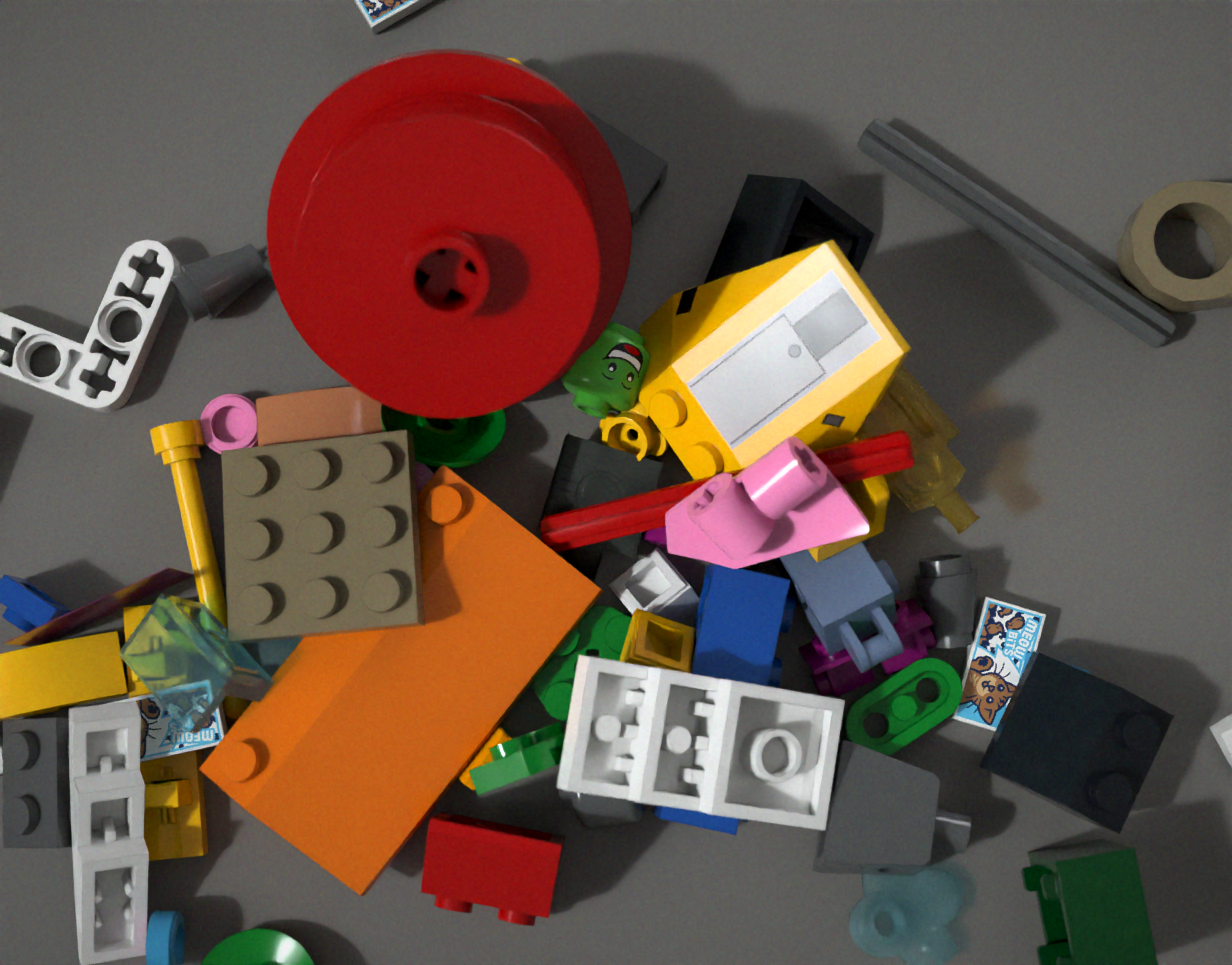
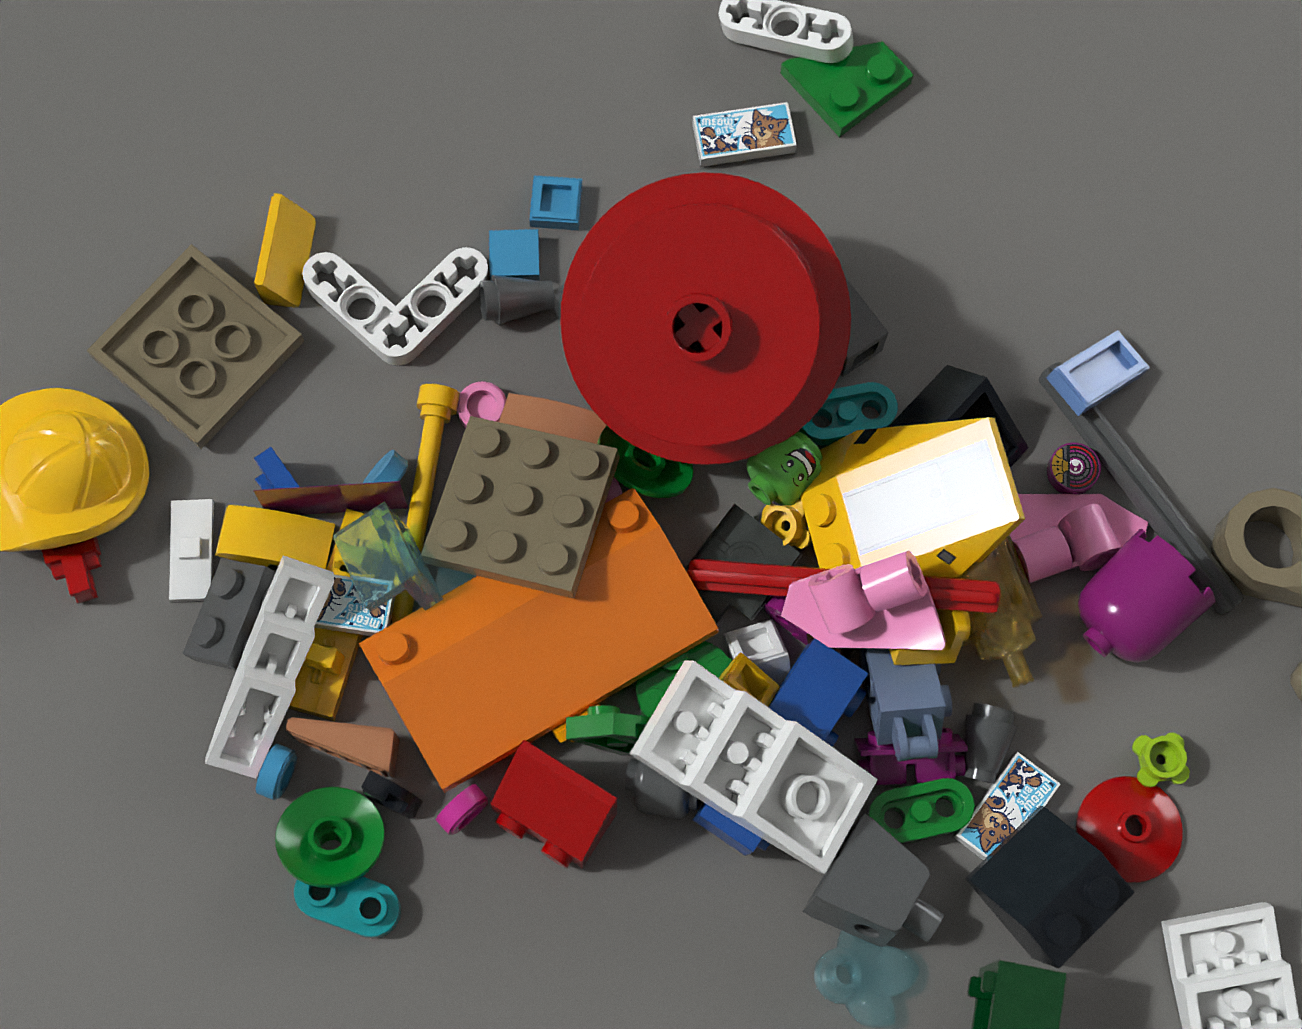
camera: 15 degrees right, 10 degrees down
(151, 550) = (388, 469): none -> dark azure tile
(198, 227) = (514, 253): none -> dark azure tile
(221, 144) = (556, 202): none -> dark azure tile
(252, 877) = (358, 744): none -> nougat slope
(293, 917) = (390, 795): none -> black tile
(392, 904) = (462, 809): none -> dark pink tile
(656, 278) = (845, 414): none -> teal plate
(923, 116) = (1097, 373): none -> tile
(934, 240) = (1073, 468): none -> tile
(961, 316) = (1070, 532): none -> bright pink panel
(1066, 374) = (1141, 600): none -> magenta cylinder
(1107, 636) = (1103, 821): none -> red dish
(1165, 543) = (1172, 749): none -> lime plate

